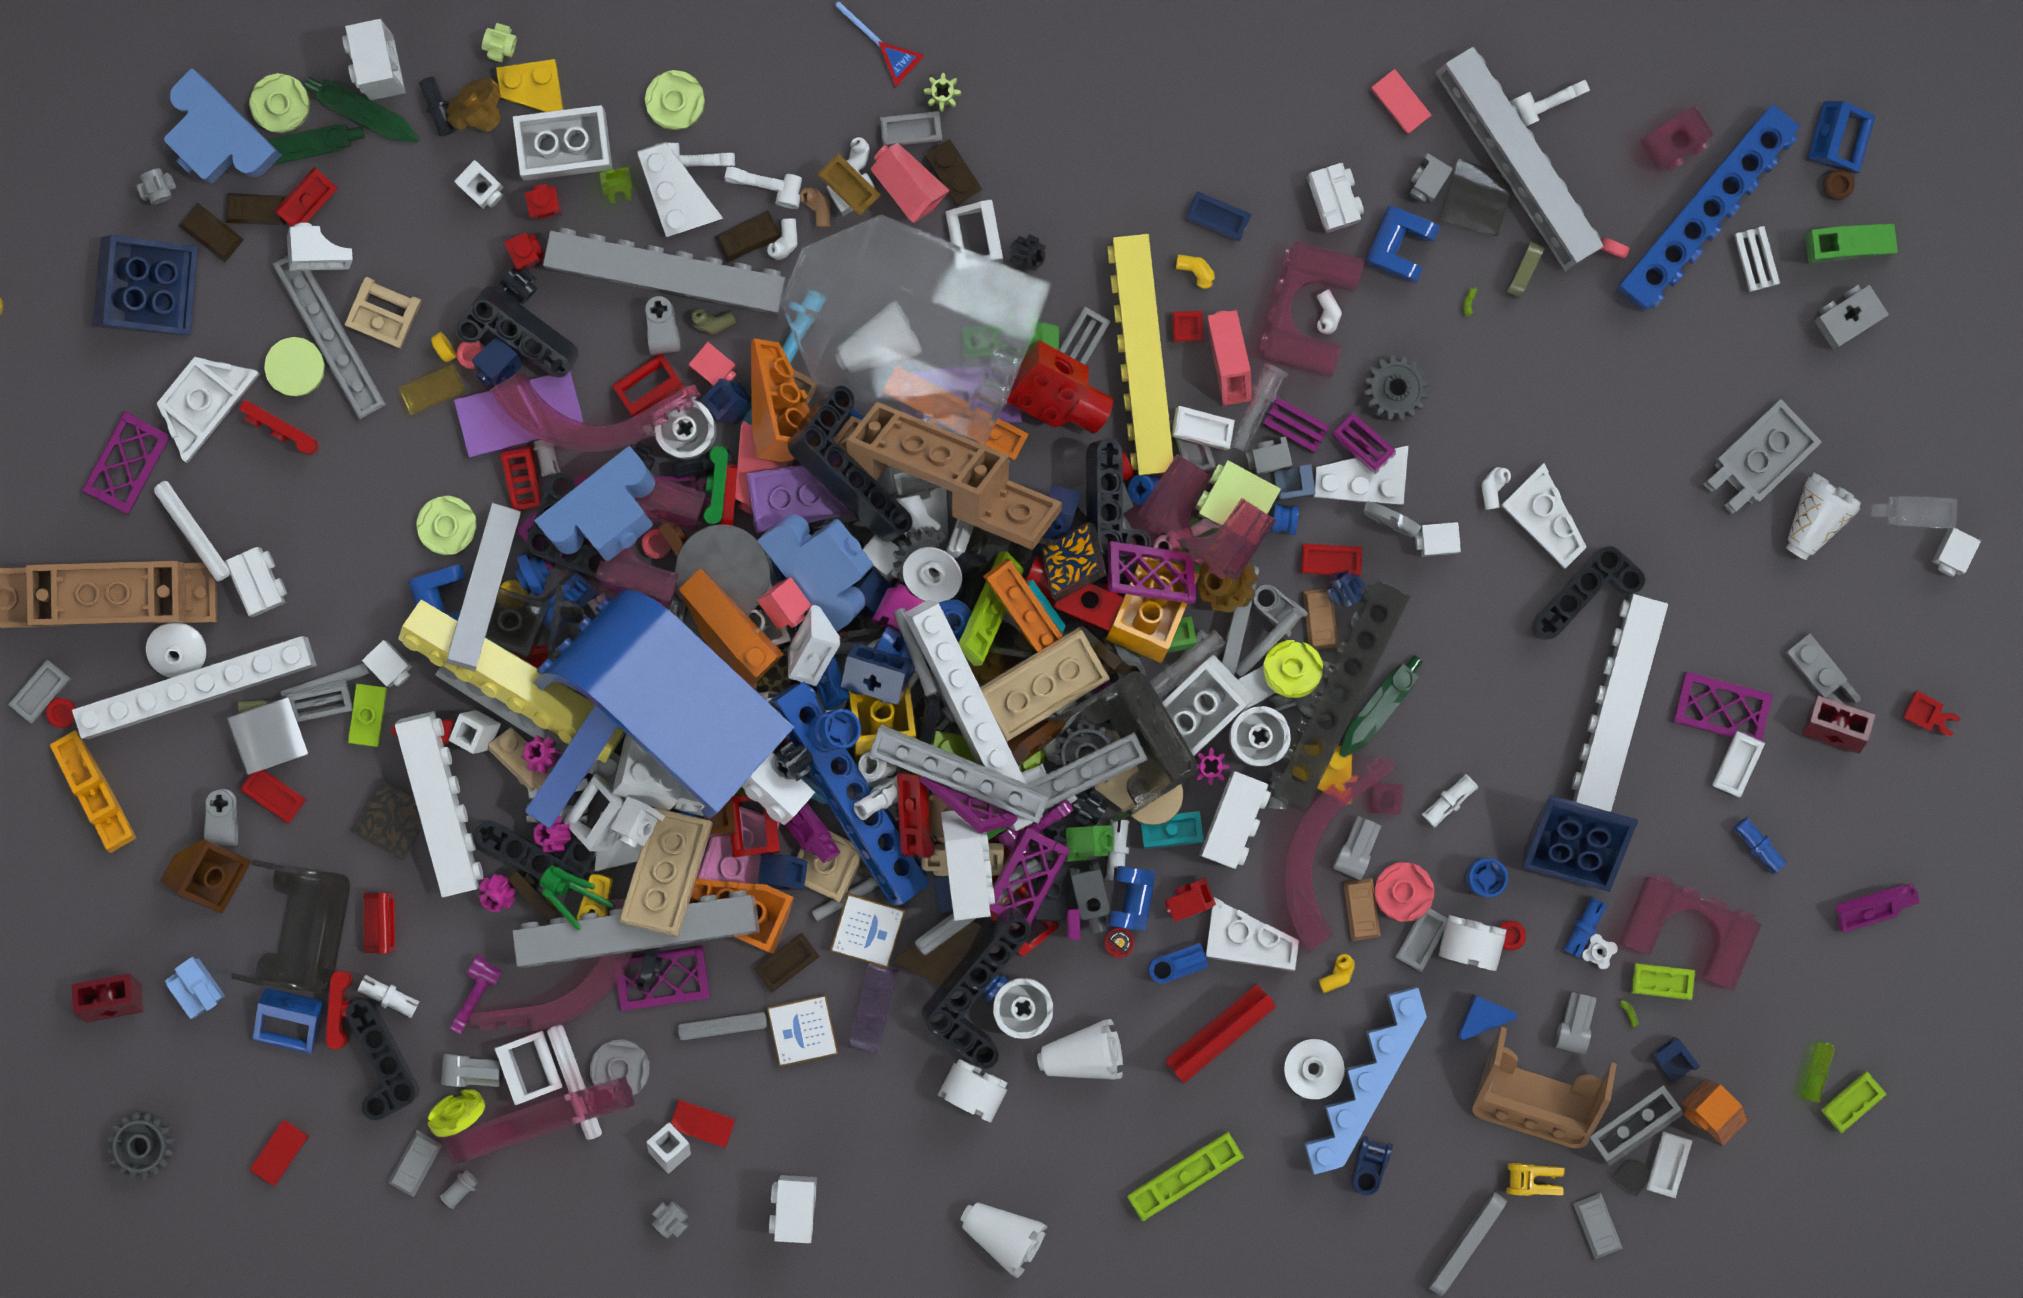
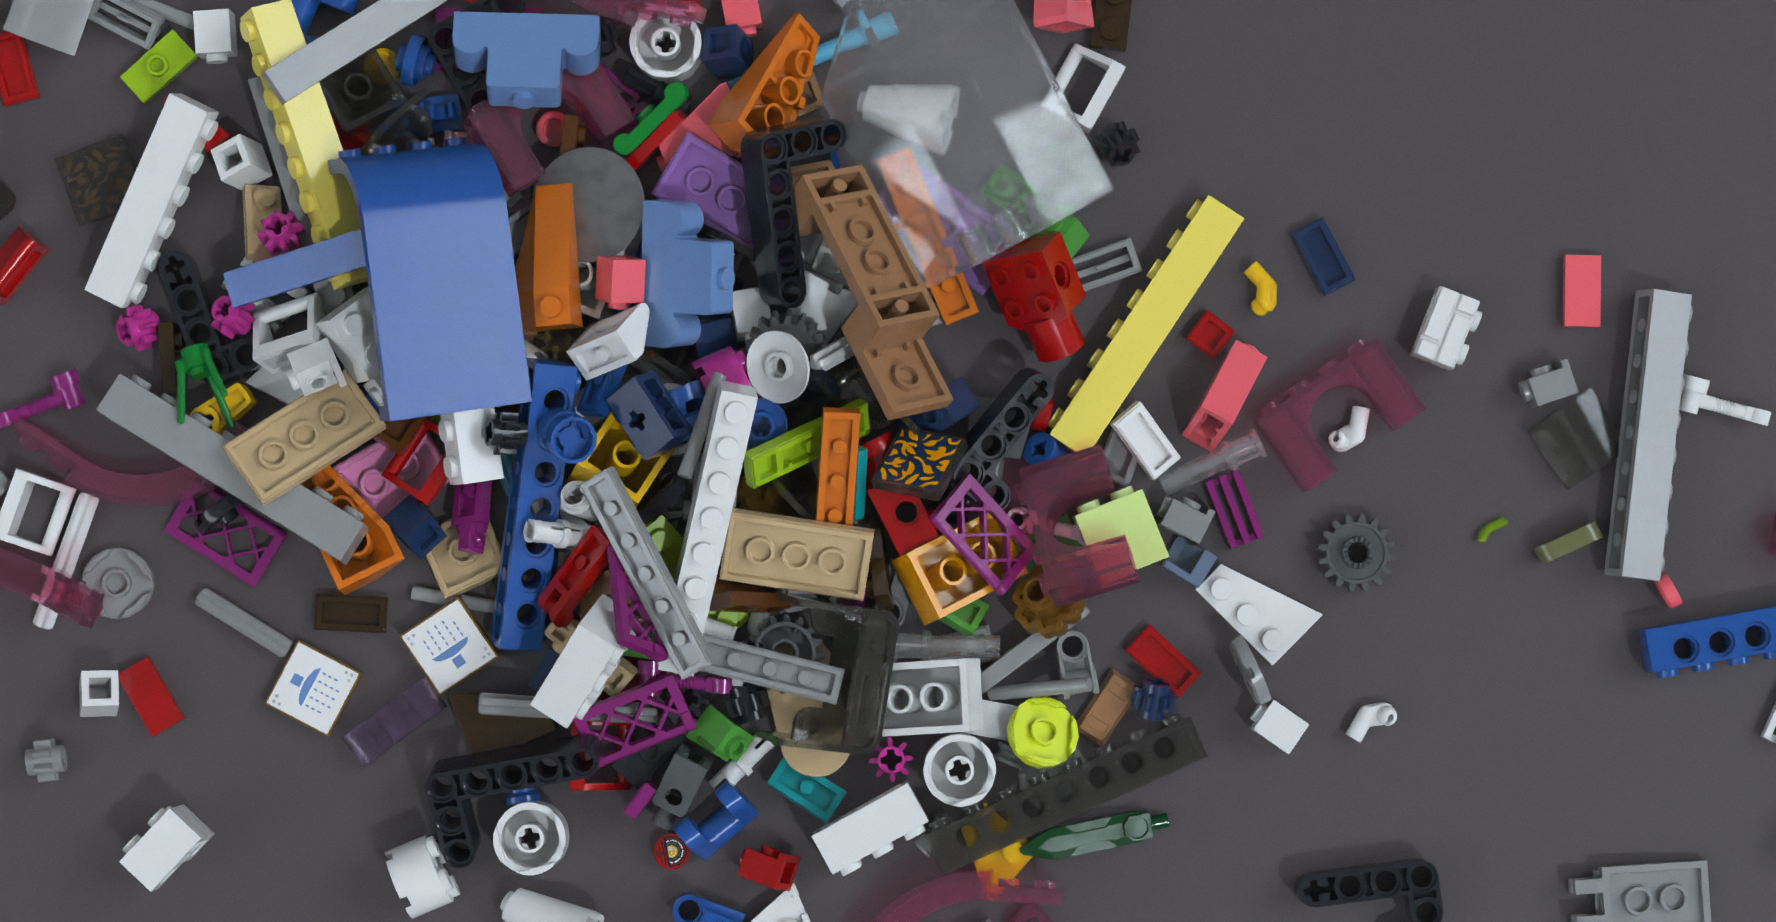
camera: 50 degrees right, 0 degrees up
(1285, 519) = (1151, 588): blue wheel -> none
(1381, 461) = (1269, 579): magenta tile -> none
(1389, 239) = (1464, 408): blue connector -> none
(1544, 517) = (1394, 787): white wing -> none

